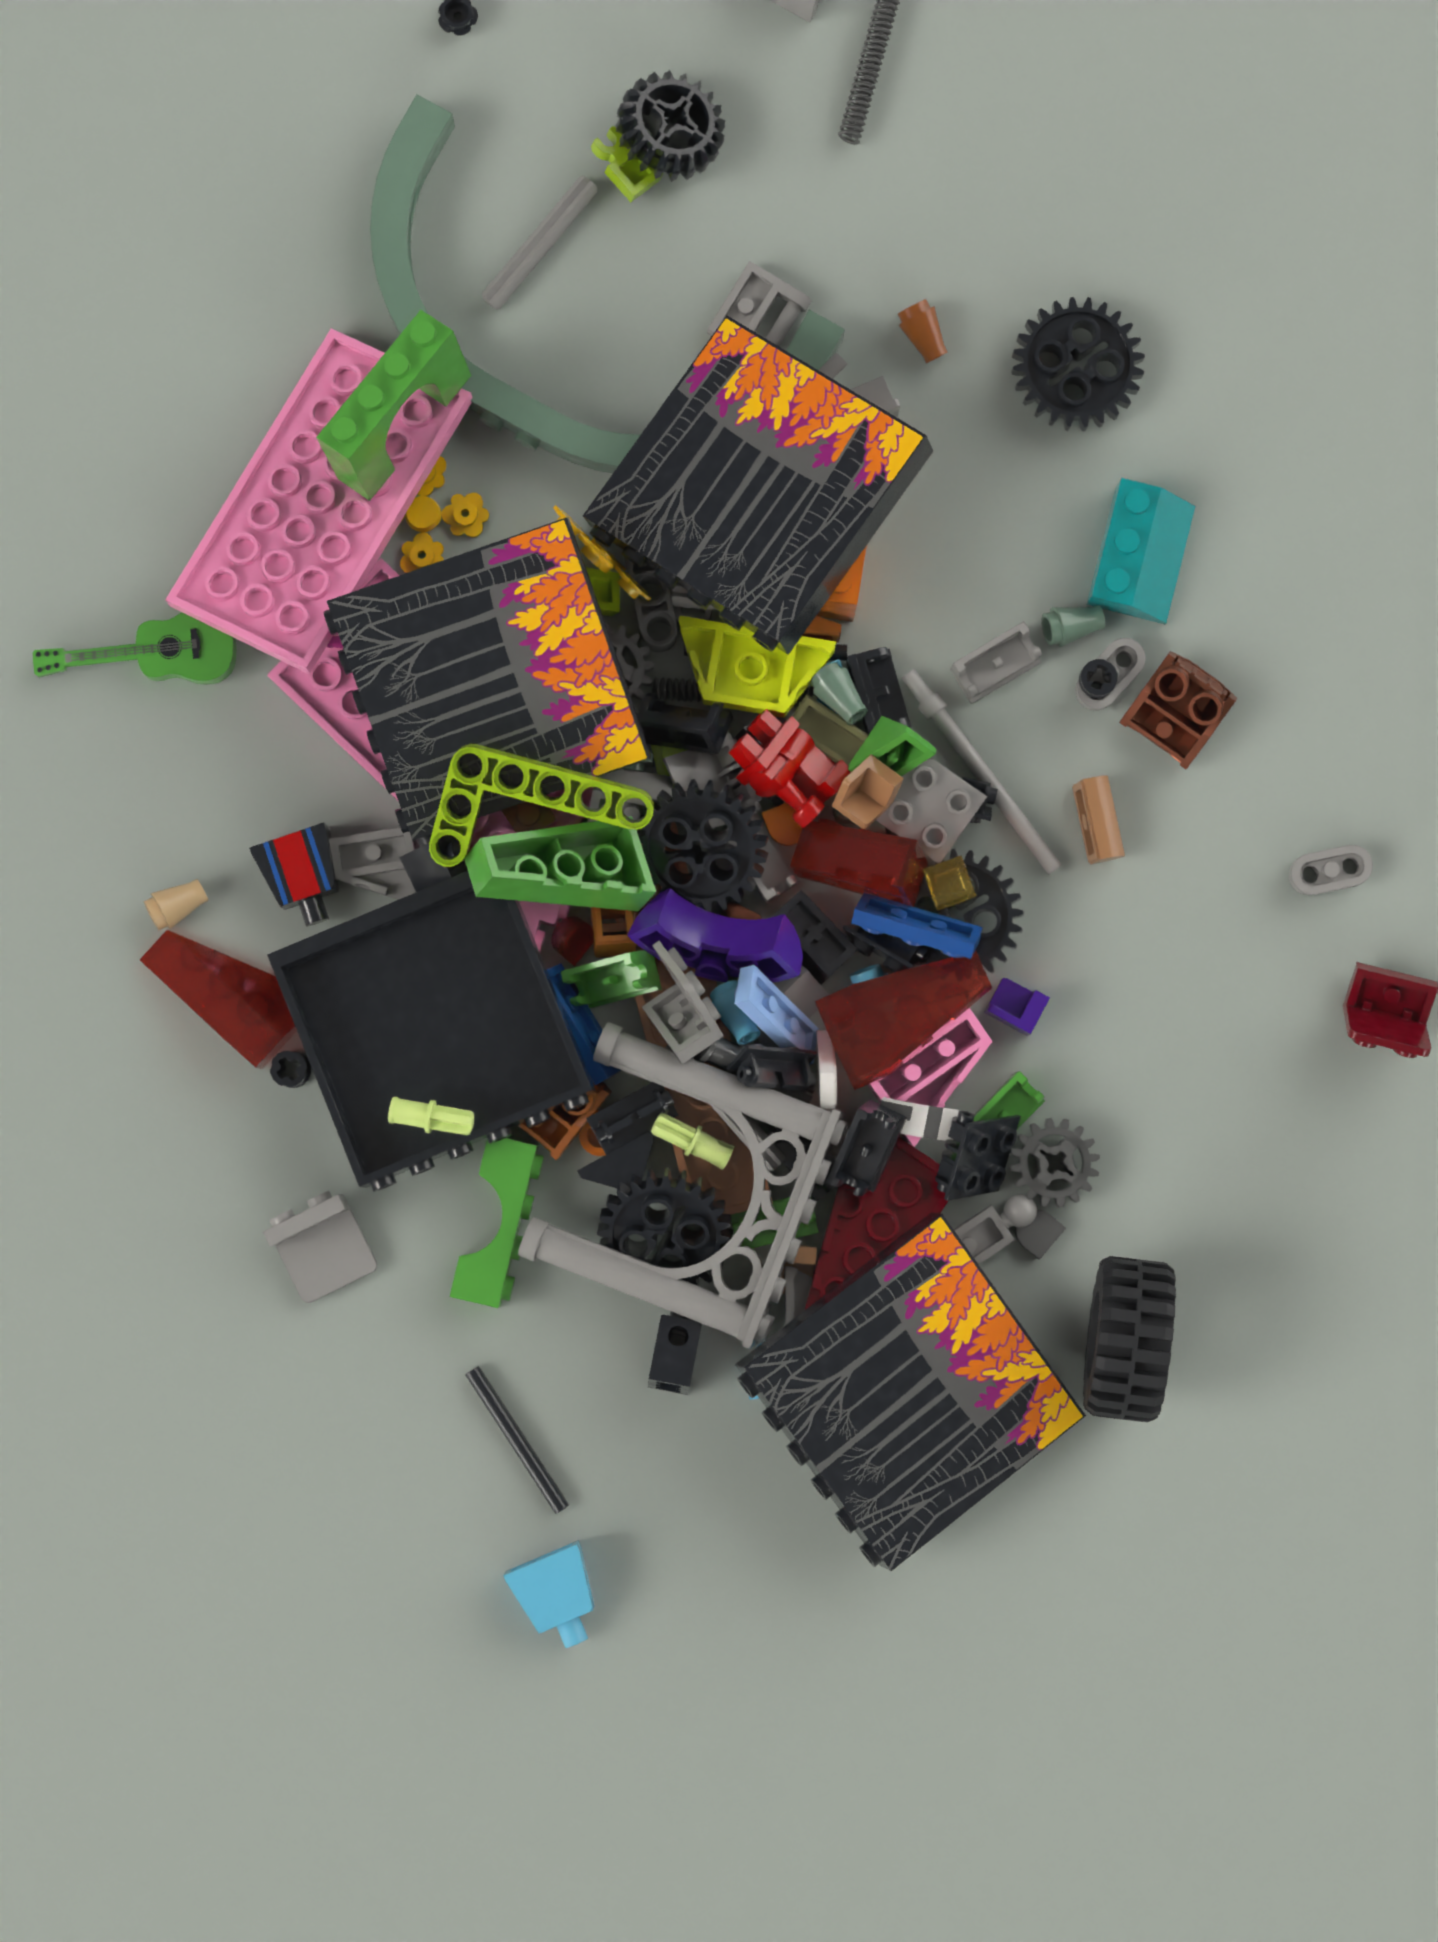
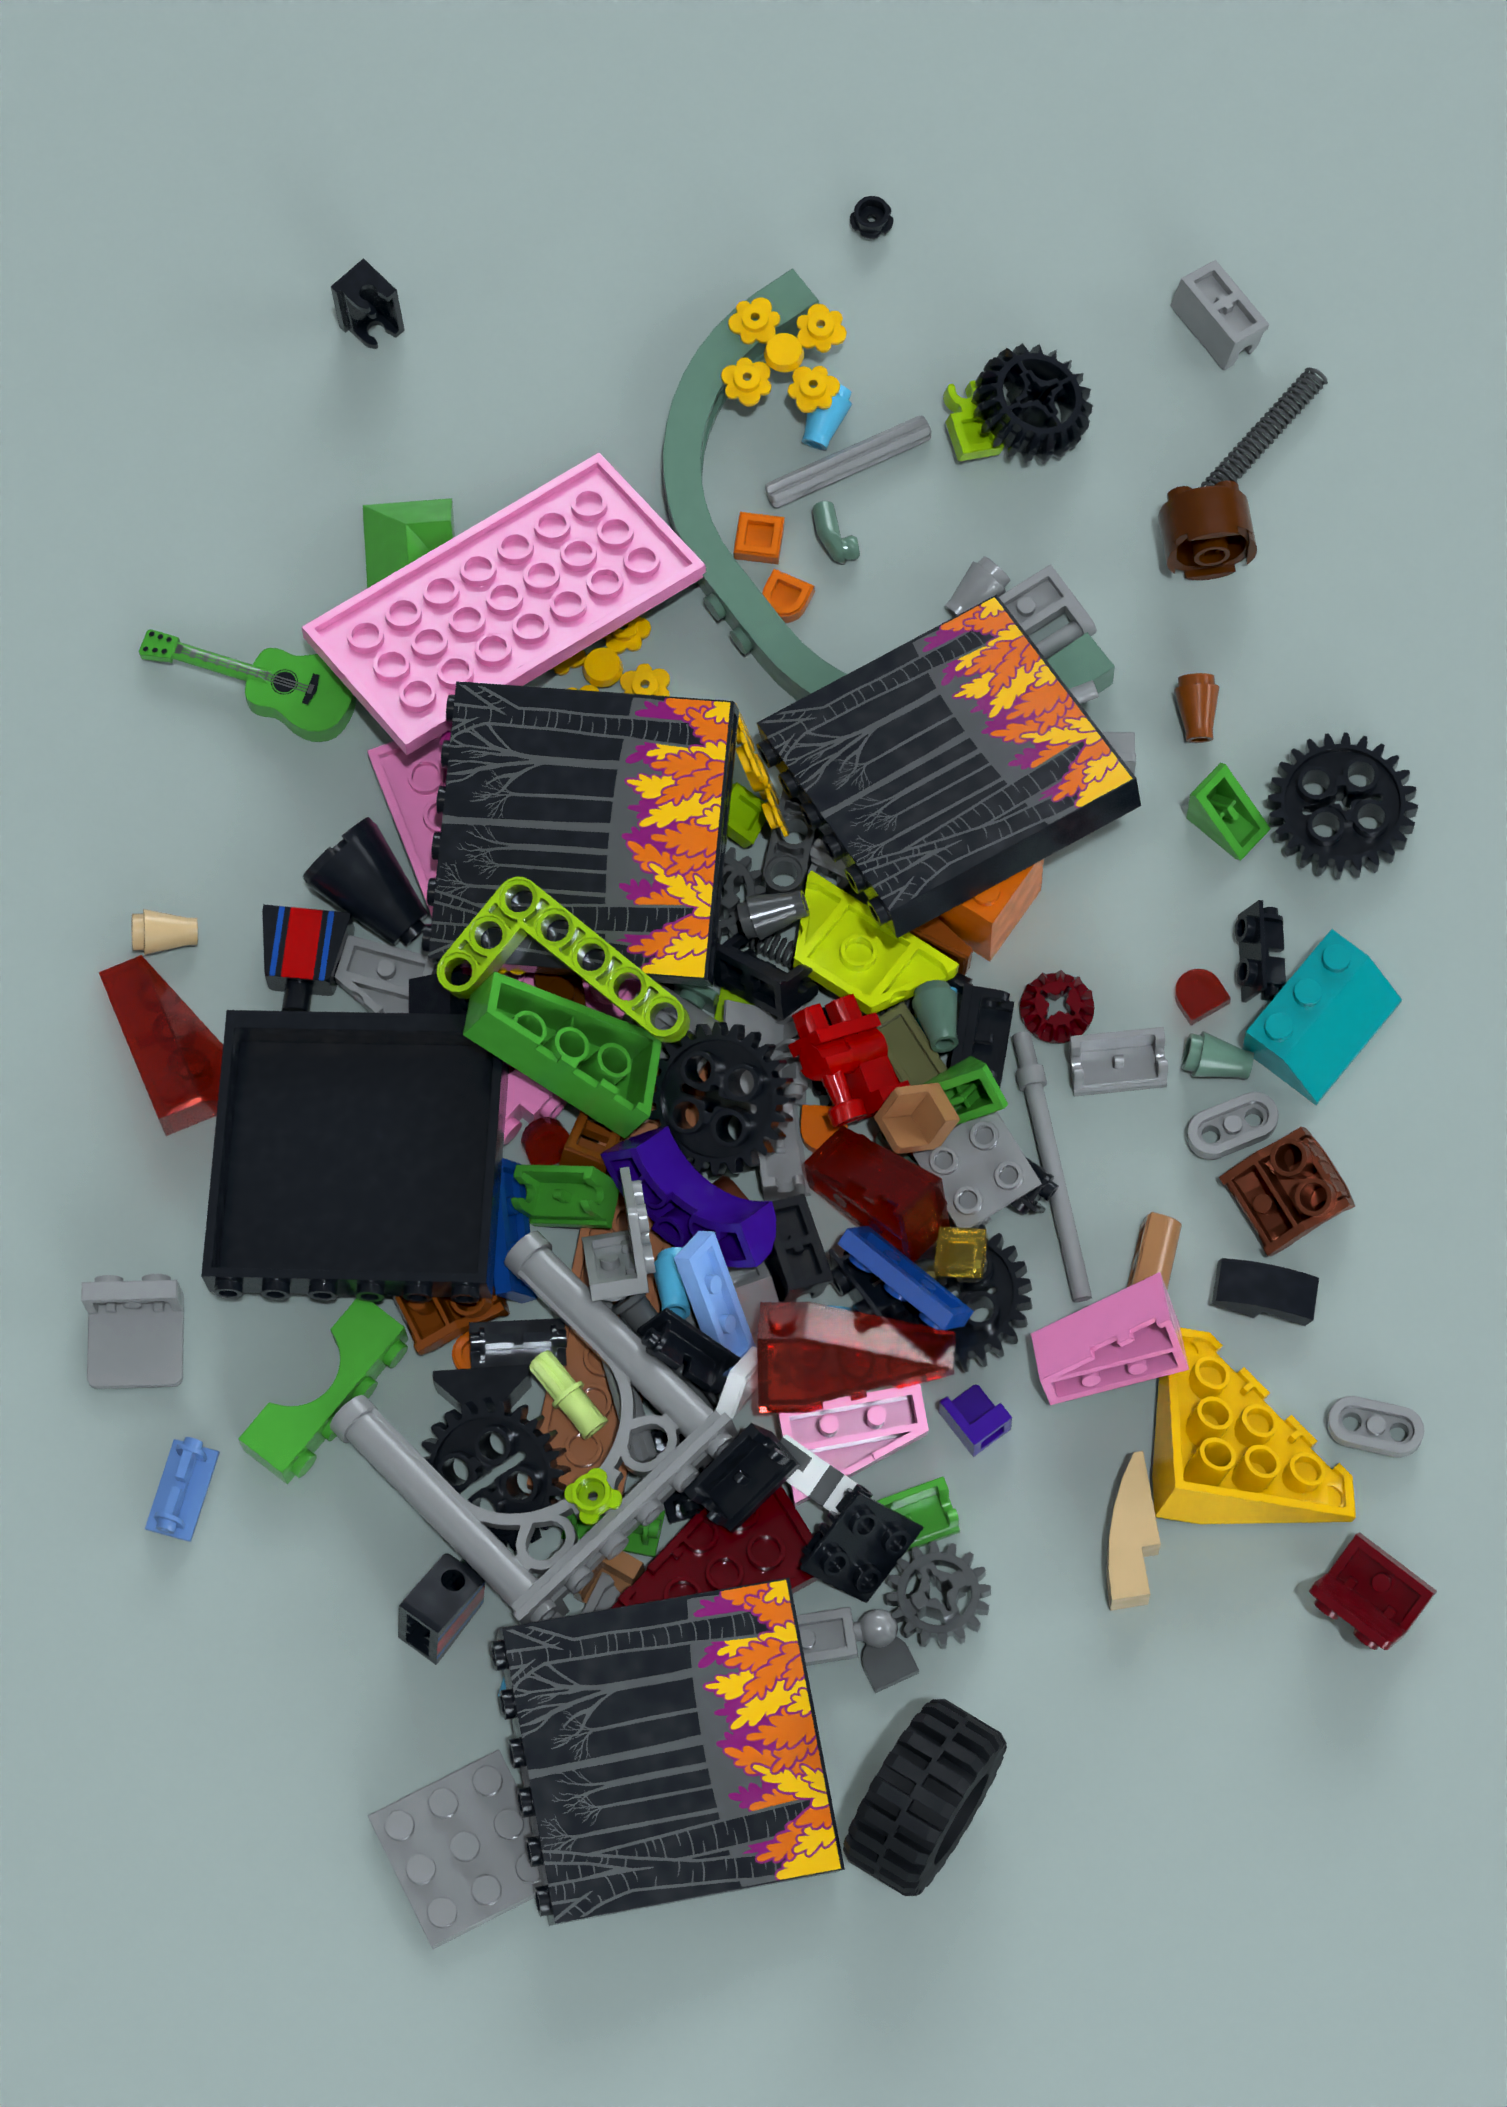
camera: 30 degrees right, 15 degrees down
(71, 281) = (366, 300): none -> black hinge
(204, 473) = (403, 533): none -> bright green slope
(303, 1071) = (181, 1141): black bush -> none
(326, 789) = (369, 884): none -> black cone
(355, 438) = (568, 537): bright green arch -> none
(421, 1352) = (182, 1489): none -> medium blue hinge
(430, 1116) = (308, 1235): yellowish green axle -> none
(446, 175) = (783, 354): none -> yellow plant
(497, 342) = (759, 538): none -> orange tile
(501, 209) = (823, 423): none -> medium azure cone
(517, 1440) = (235, 1627): black bar -> none
(544, 383) = (788, 595): none -> orange tile
(554, 313) = (829, 533): none -> sand green arm
(555, 1592) = (195, 1798): medium azure torso -> none
(666, 669) = (769, 913): none -> dark grey cone
(698, 309) = (979, 584): none -> light grey cone
(748, 1226) = (593, 1482): none -> lime plate
(777, 1531) = (460, 1849): none -> light grey plate
(865, 175) = (1207, 530): none -> reddish brown brick
(909, 647) = (1059, 1026): none -> dark red gear
(990, 413) = (1226, 813): none -> bright green slope
(1033, 575) = (1200, 995): none -> clear red tile
(1073, 536) = (1258, 933): none -> black hinge
(1089, 669) = (1212, 1106): black bush -> none
(1100, 904) = (1111, 1343): none -> bright pink wedge
(1180, 1045) = (1131, 1538): none -> tan slope
(1197, 798) = (1265, 1288): none -> black slope
(1224, 941) = (1231, 1456): none -> yellow slope

